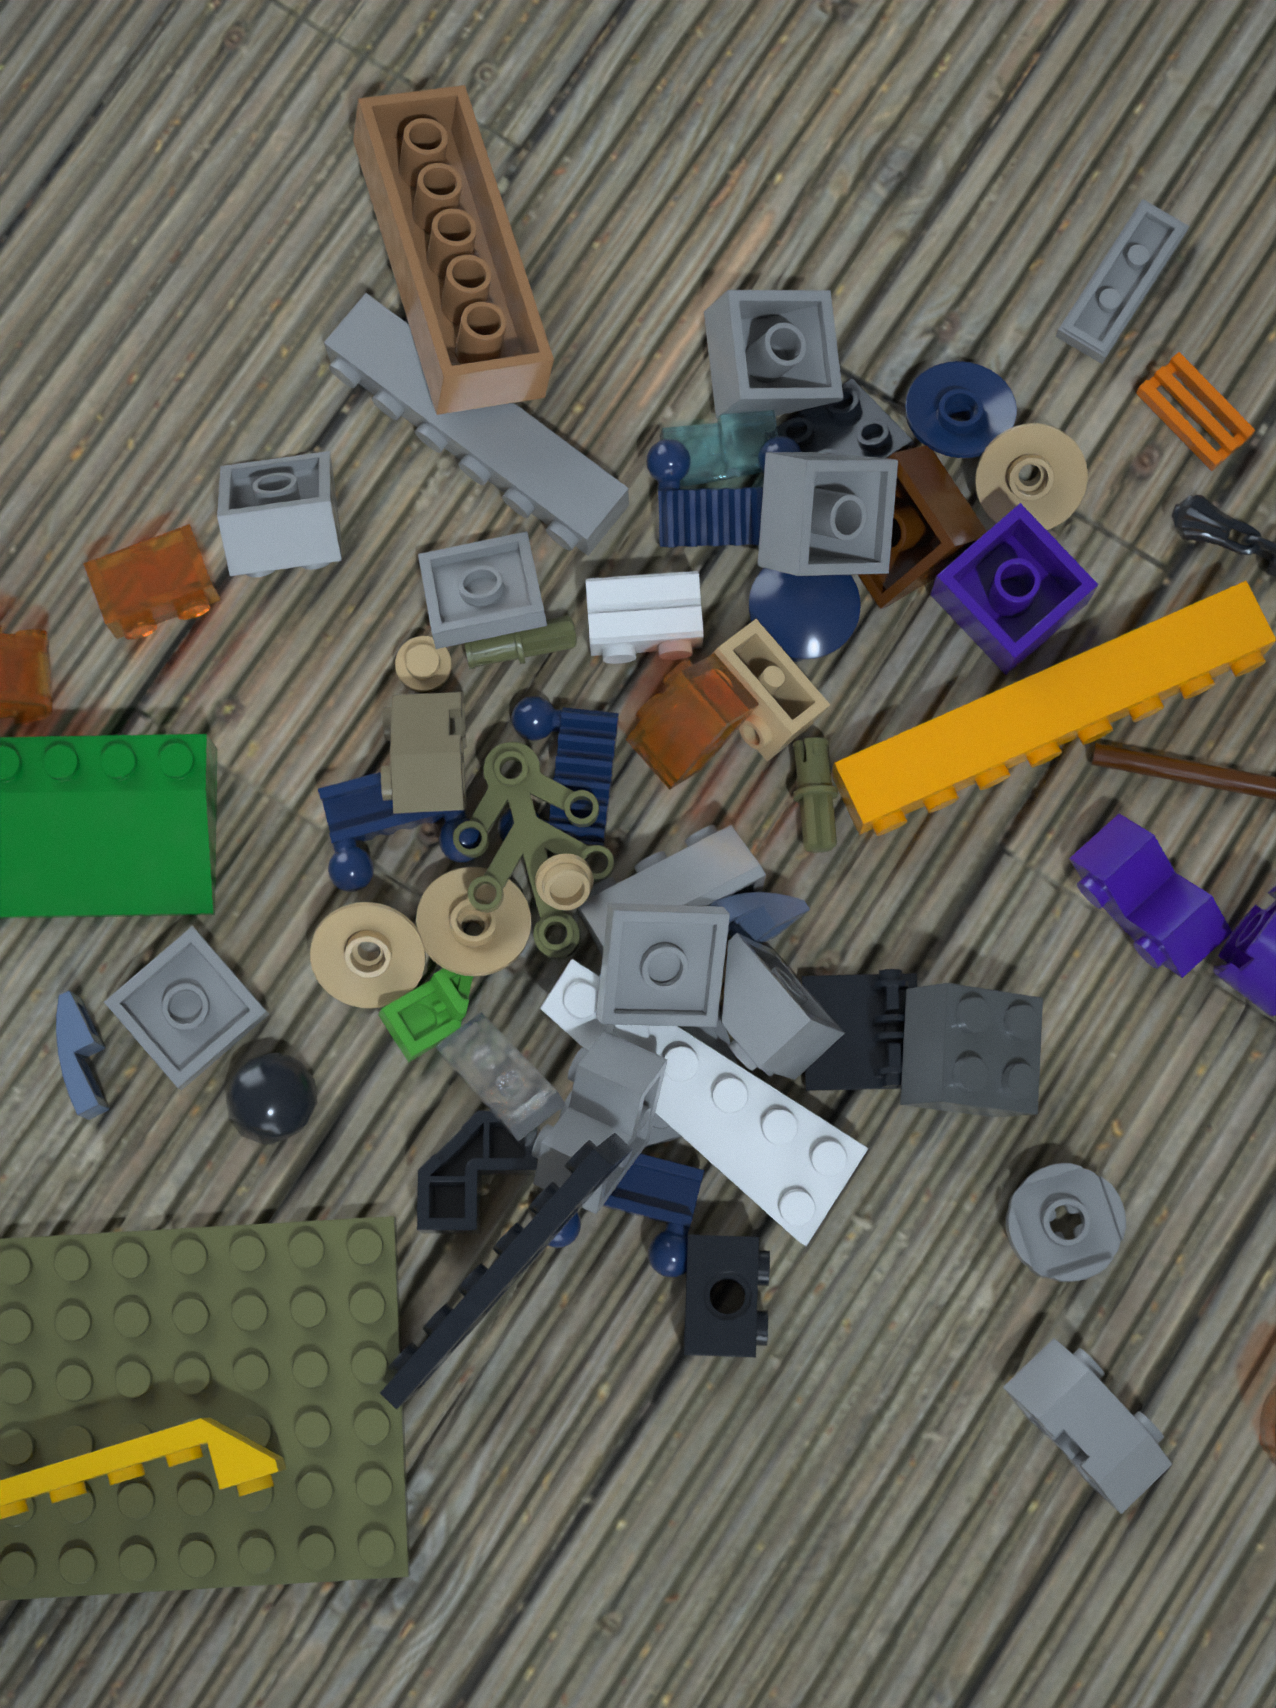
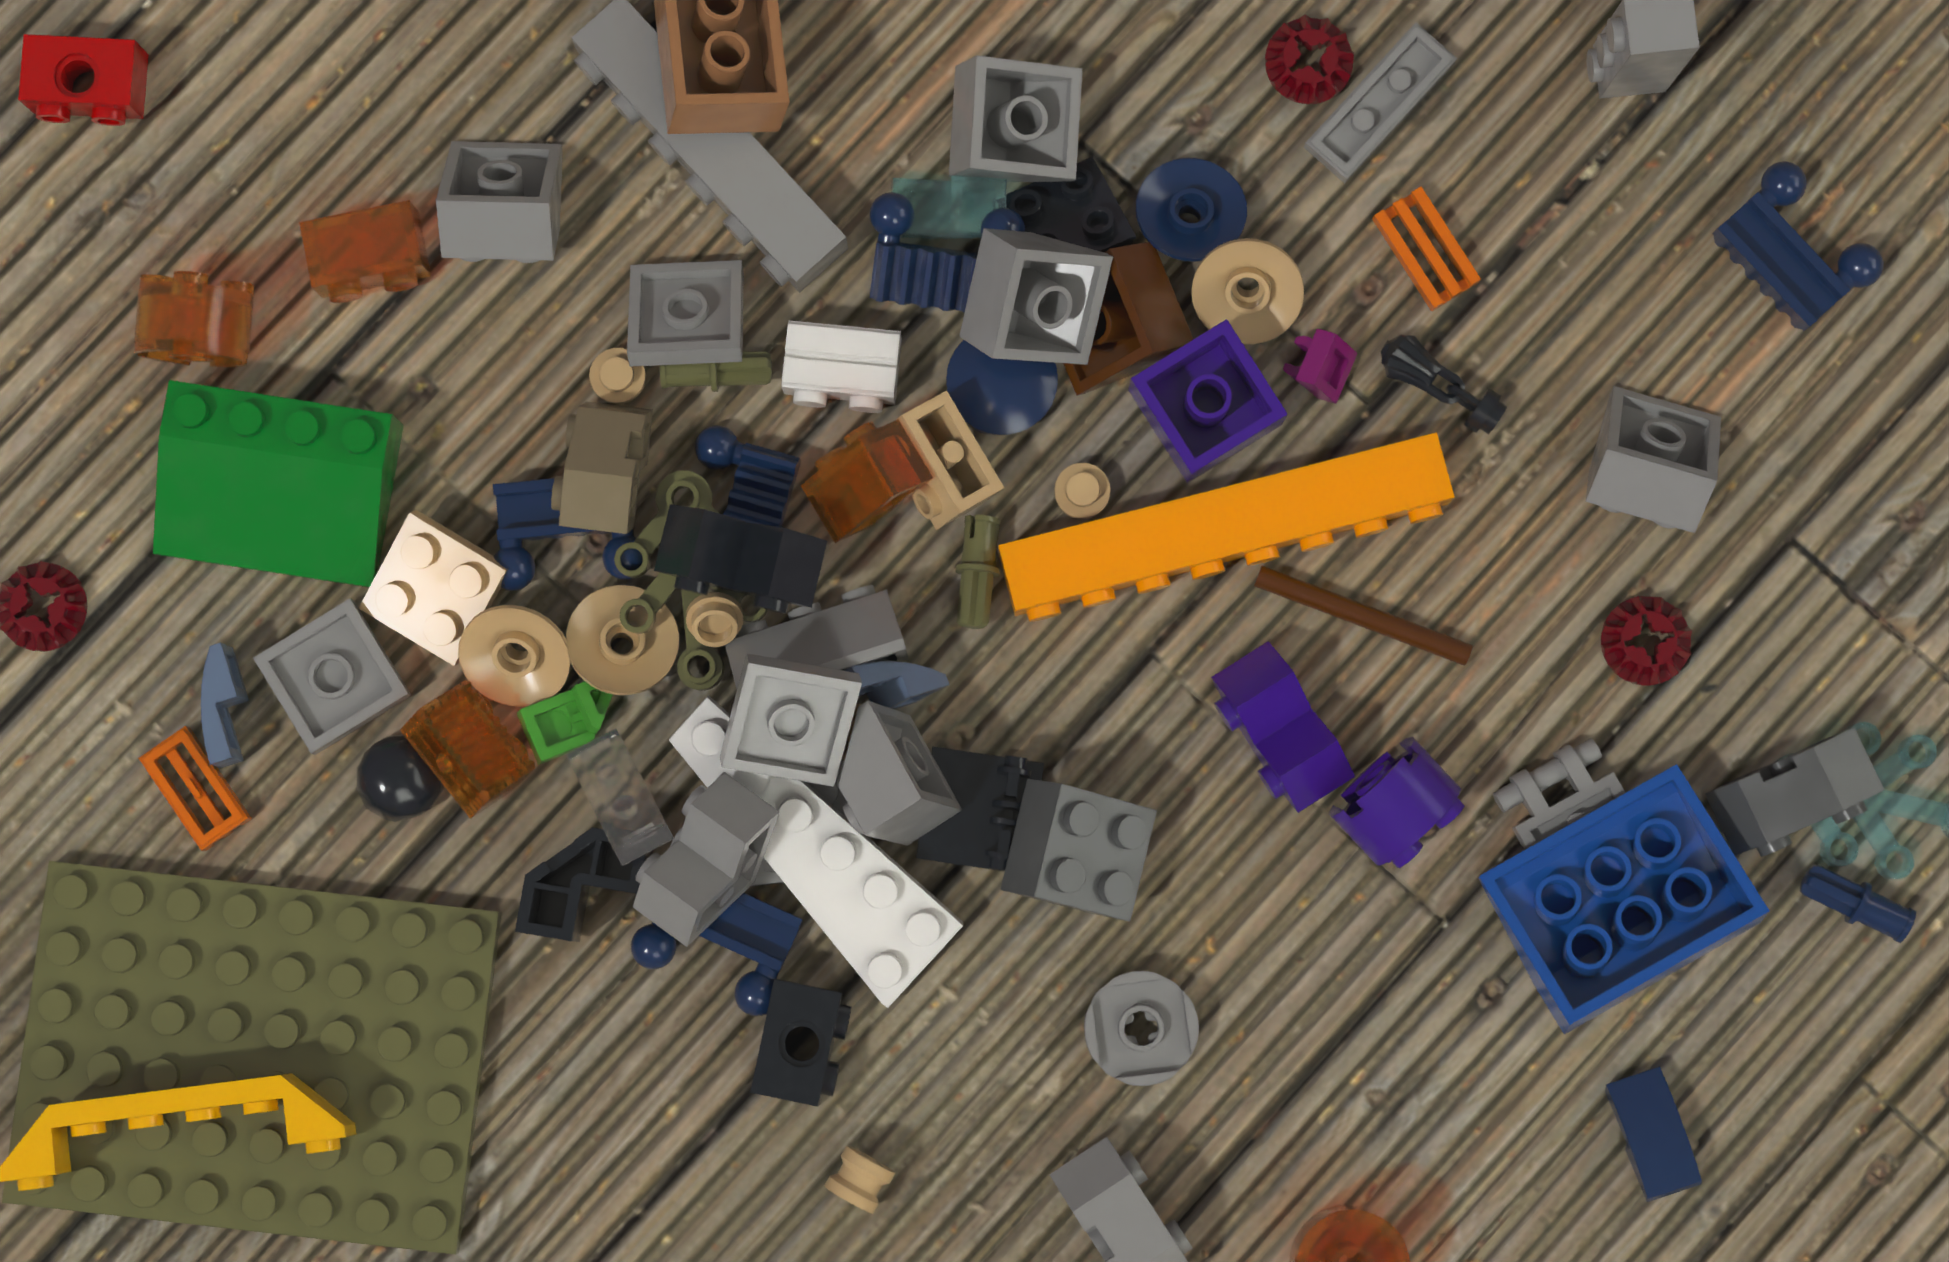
camera: 10 degrees right, 5 degrees up
(98, 1179) = (222, 827): none -> orange tile
(273, 900) = (432, 585): none -> plate
(336, 1055) = (468, 748): none -> clear orange brick
(516, 1252) = (603, 971): black plate -> none
(579, 814) = (740, 557): none -> black brick
(810, 1426) = (859, 1179): none -> tan wheel
(904, 699) = (1082, 490): none -> tan plate
(1045, 275) = (1306, 84): none -> dark red gear
(1120, 537) = (1324, 366): none -> magenta tile

